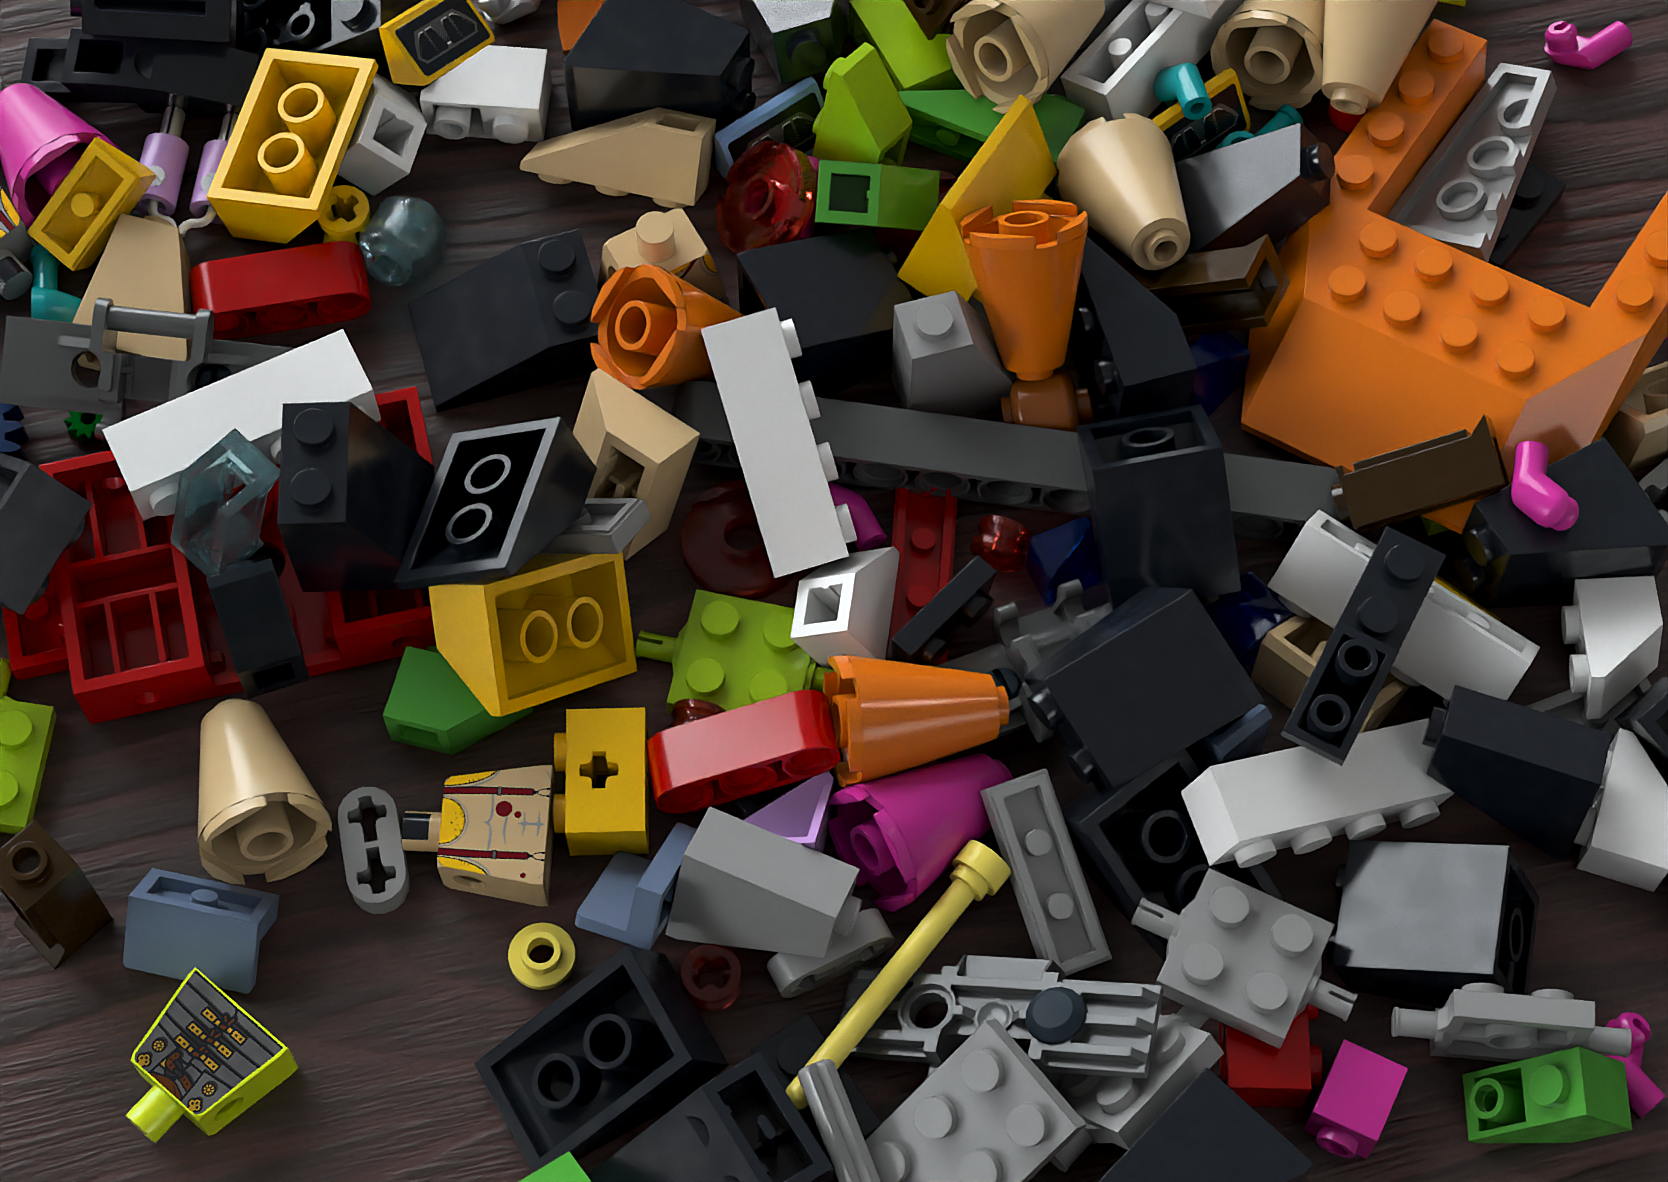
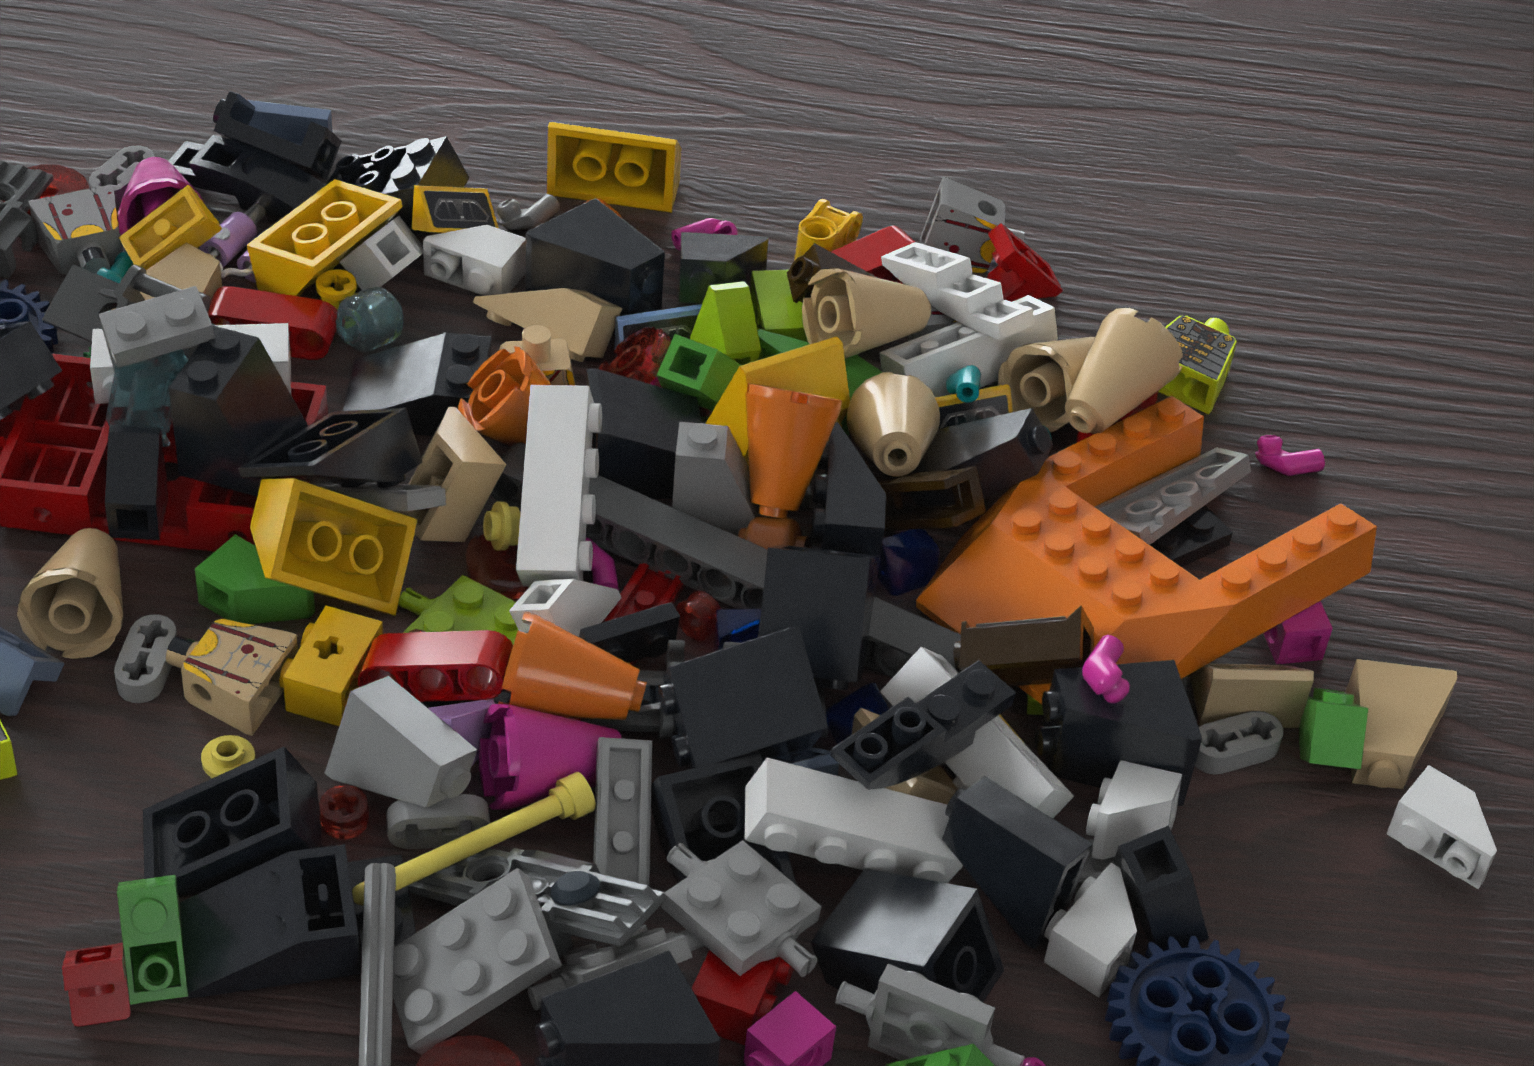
camera: 15 degrees right, 20 degrees down
(219, 439) = (156, 327): none -> light grey bracket
(635, 893) = (307, 735): sand blue panel -> none
(719, 507) = (502, 525): none -> light yellow plate

